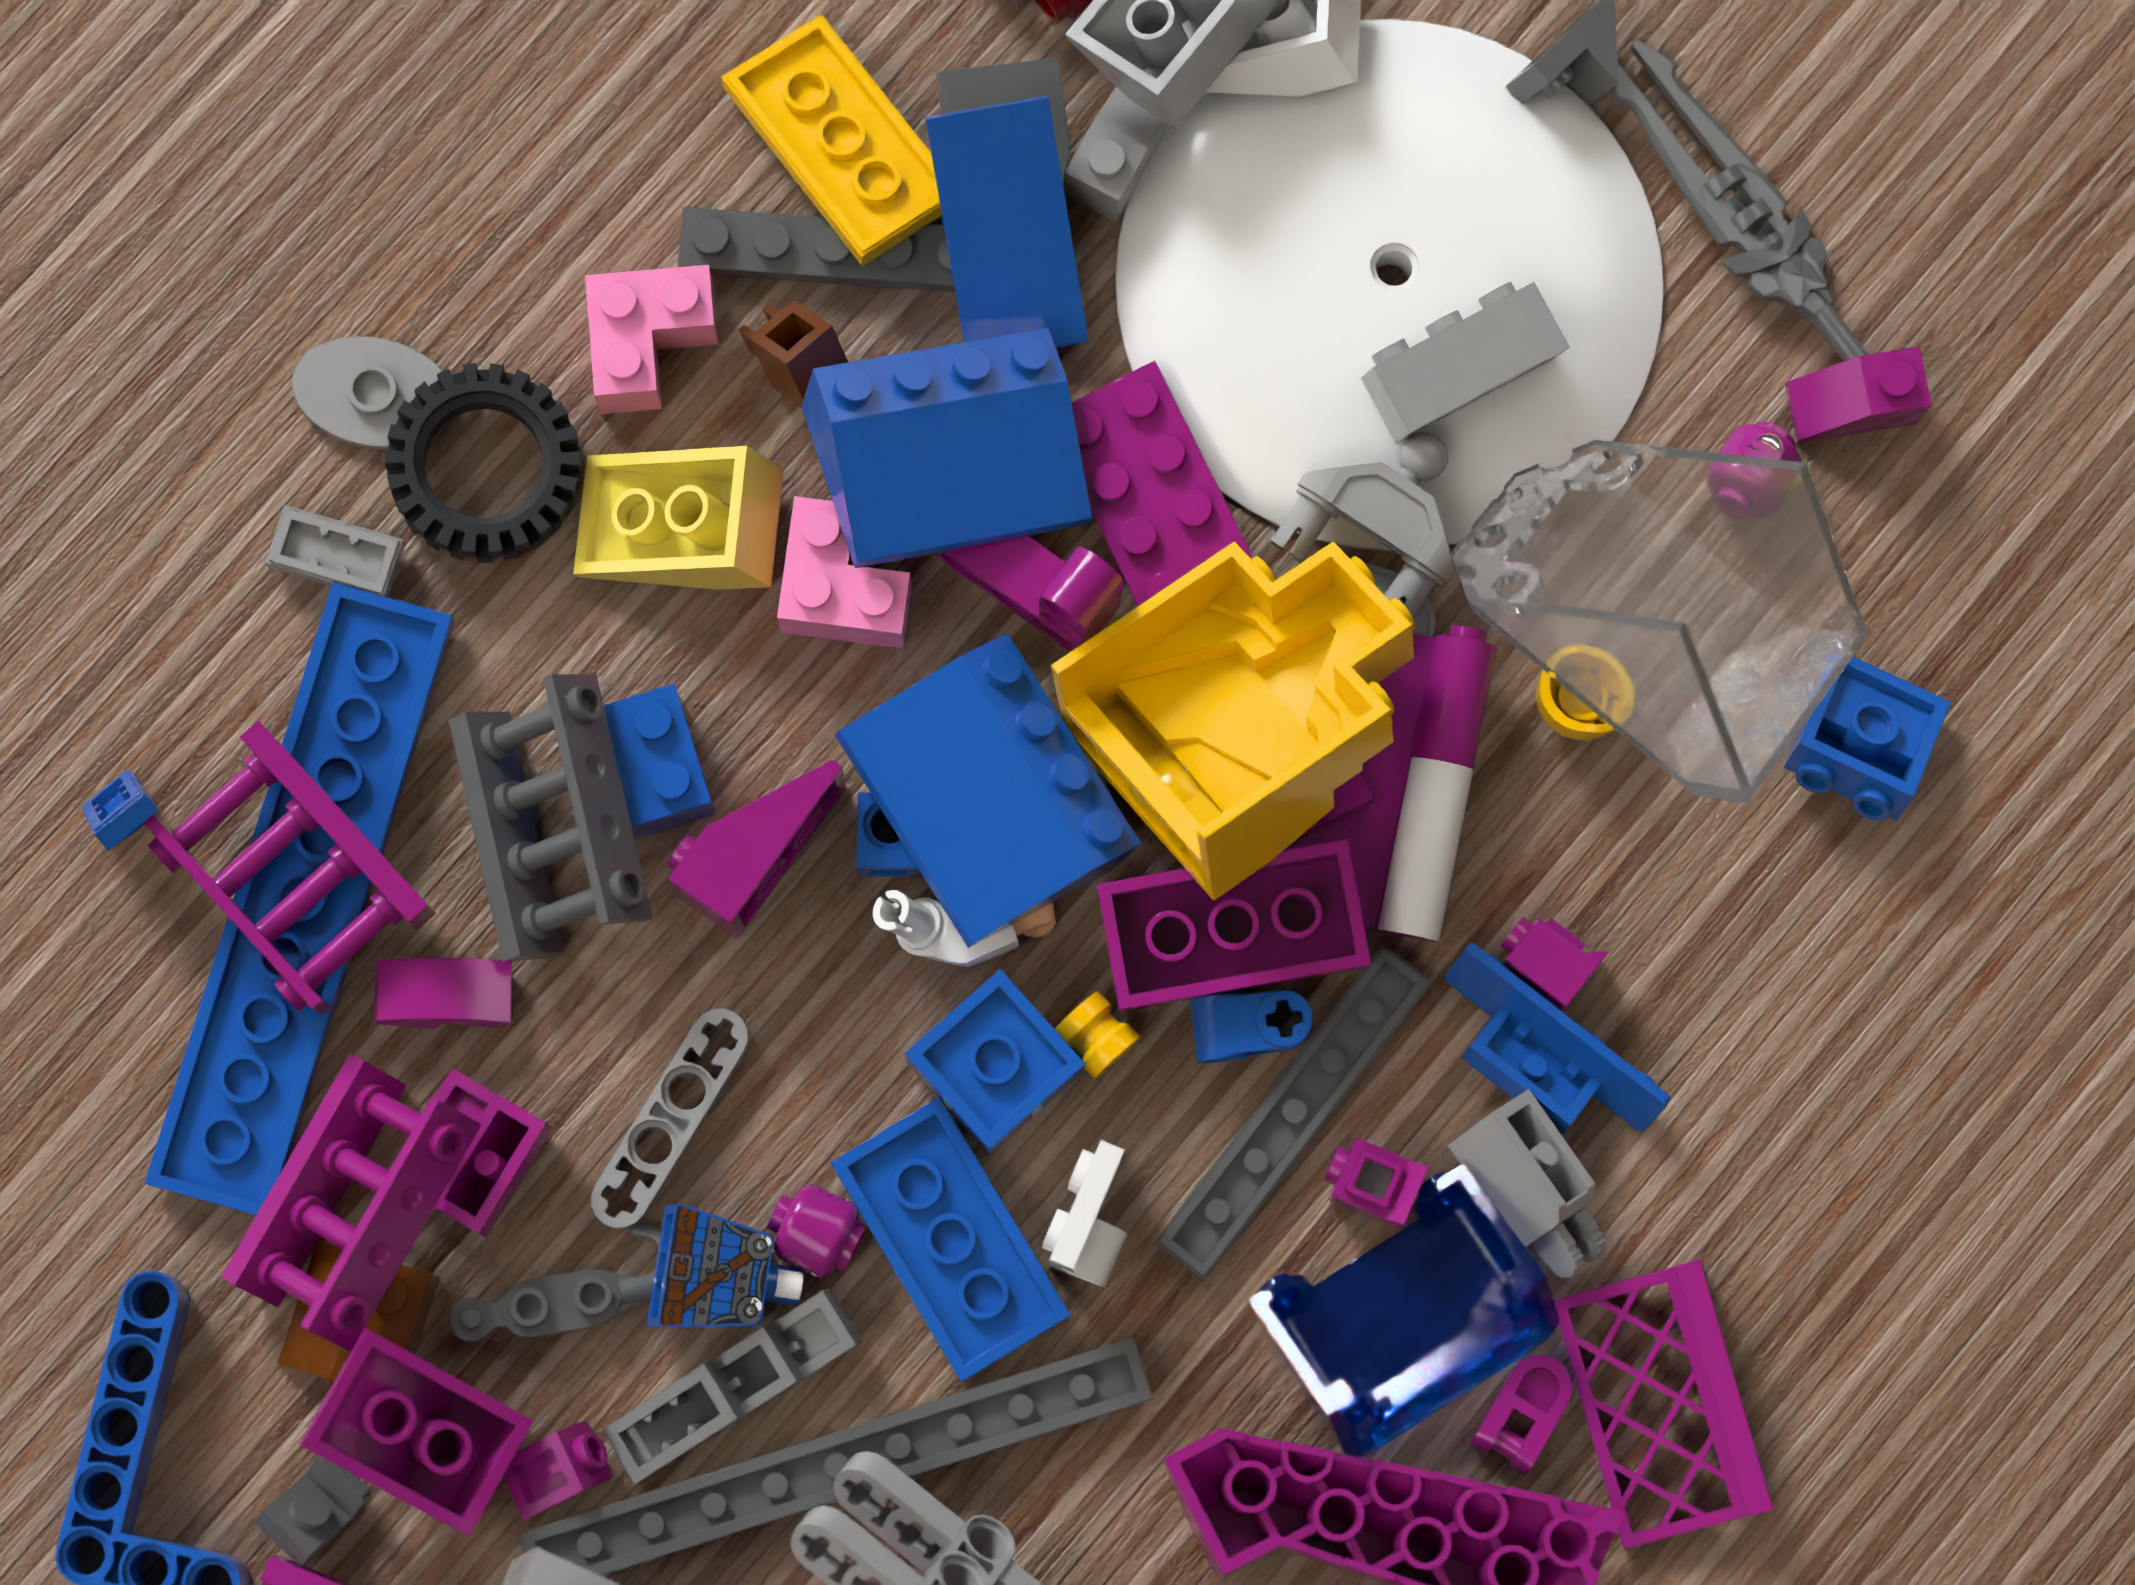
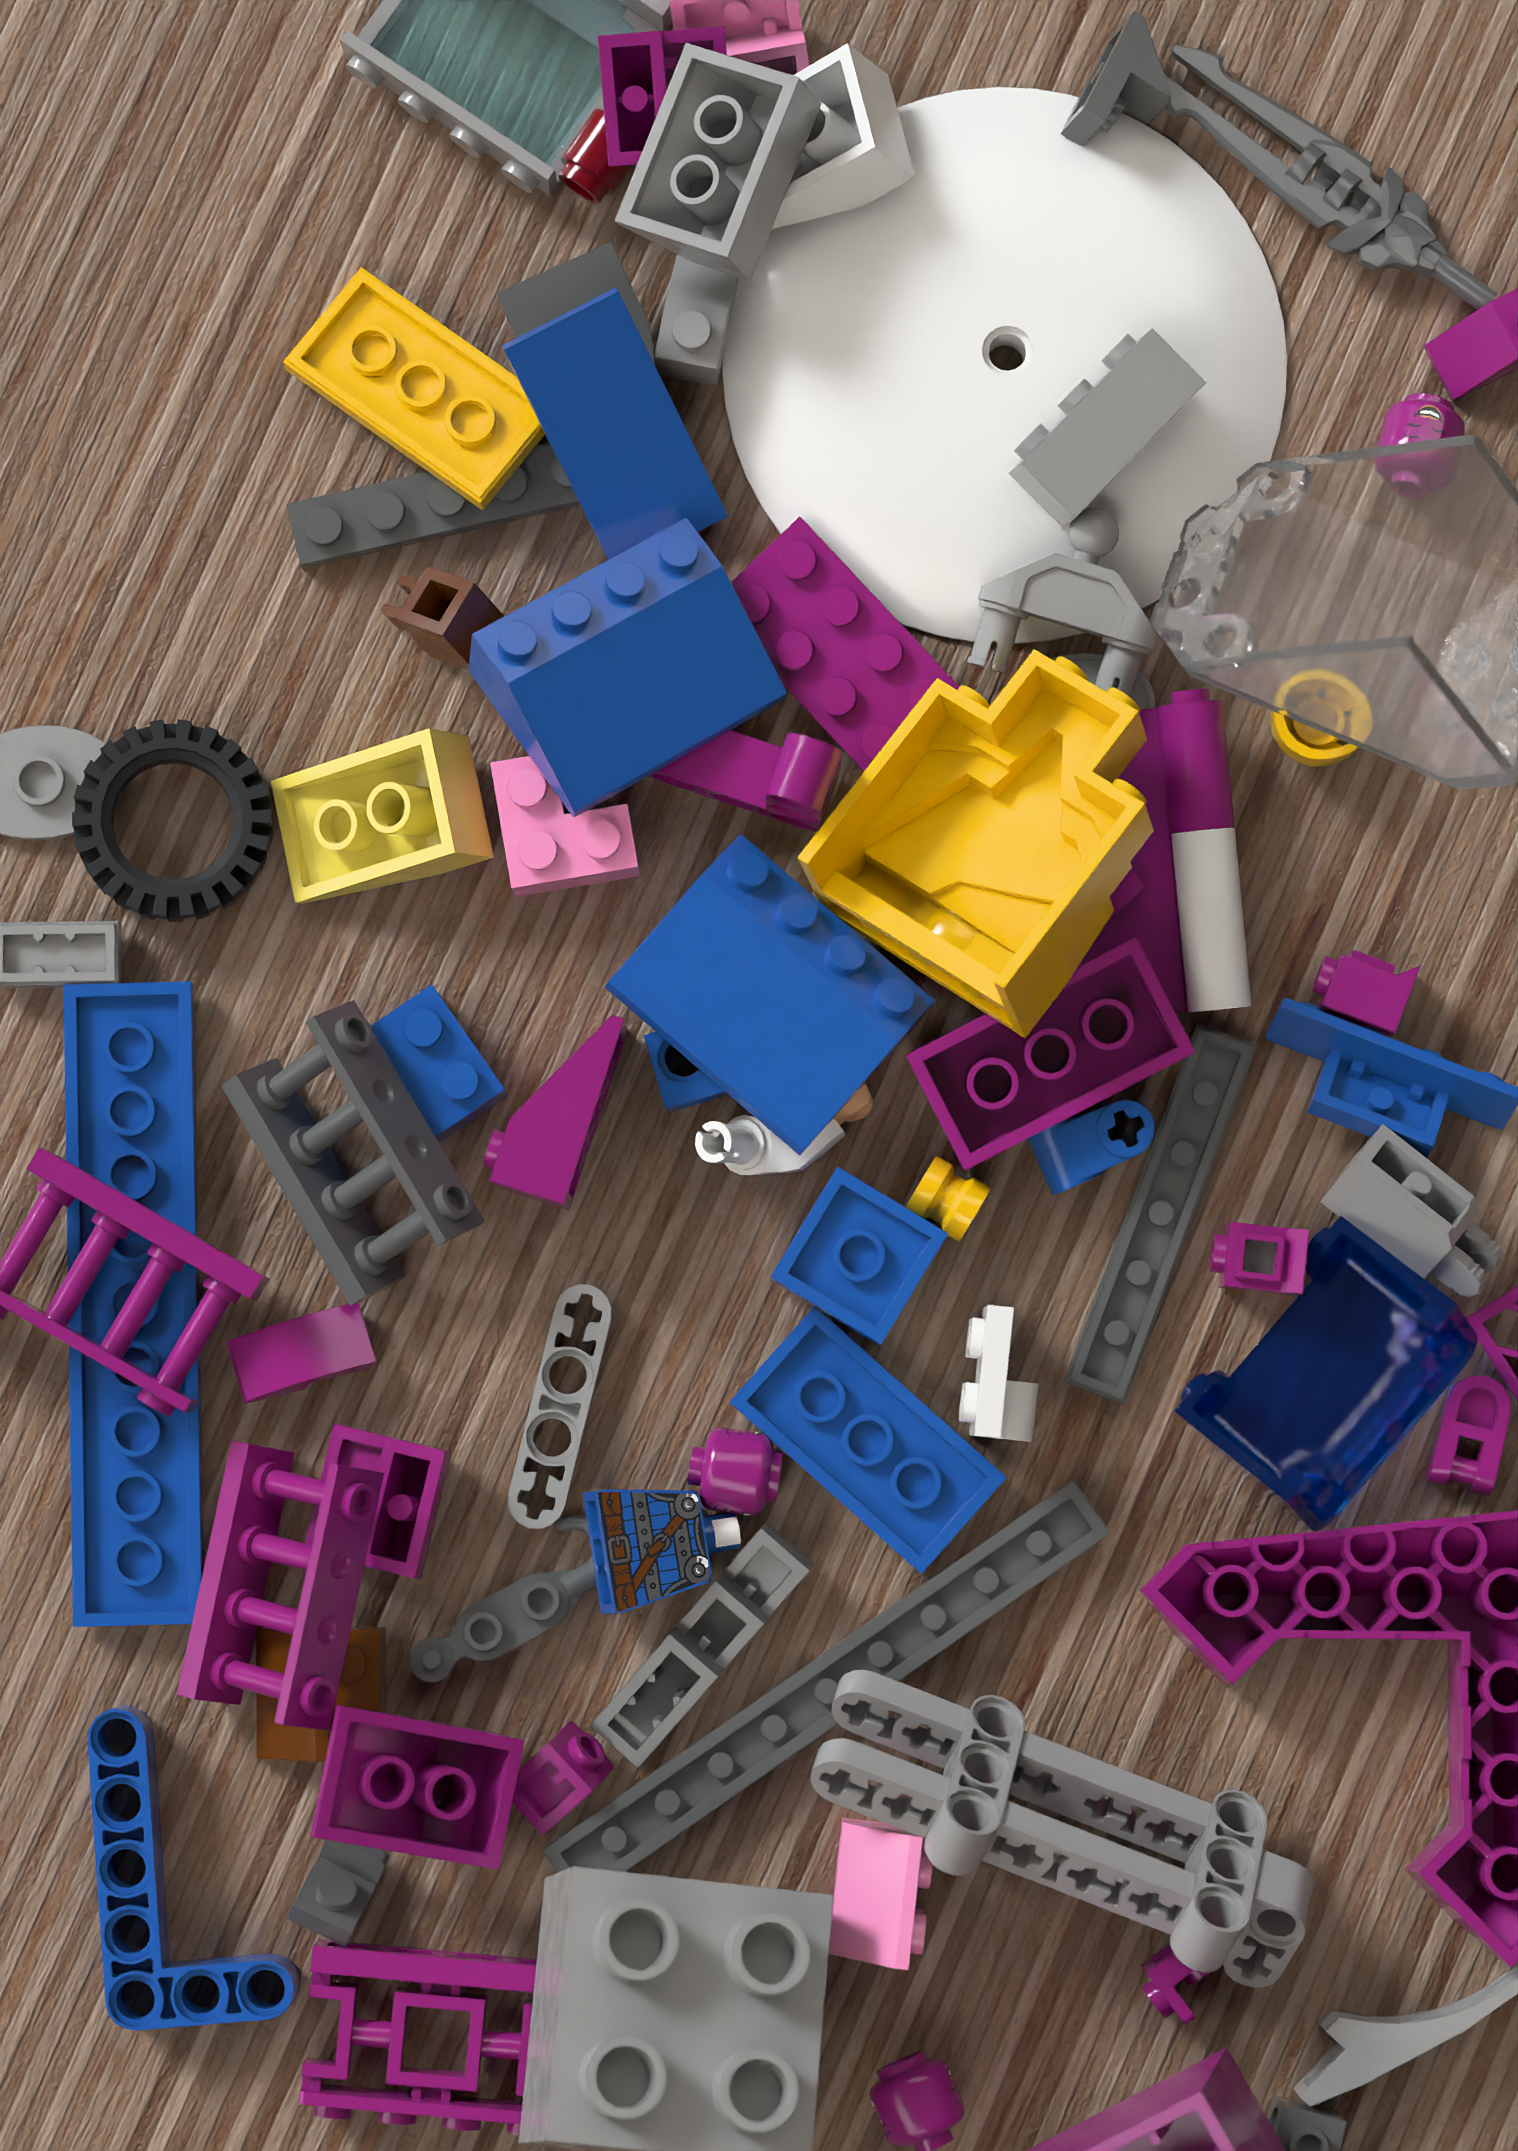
camera: 10 degrees left, 5 degrees up
(637, 316) = (276, 629): bright pink brick -> none

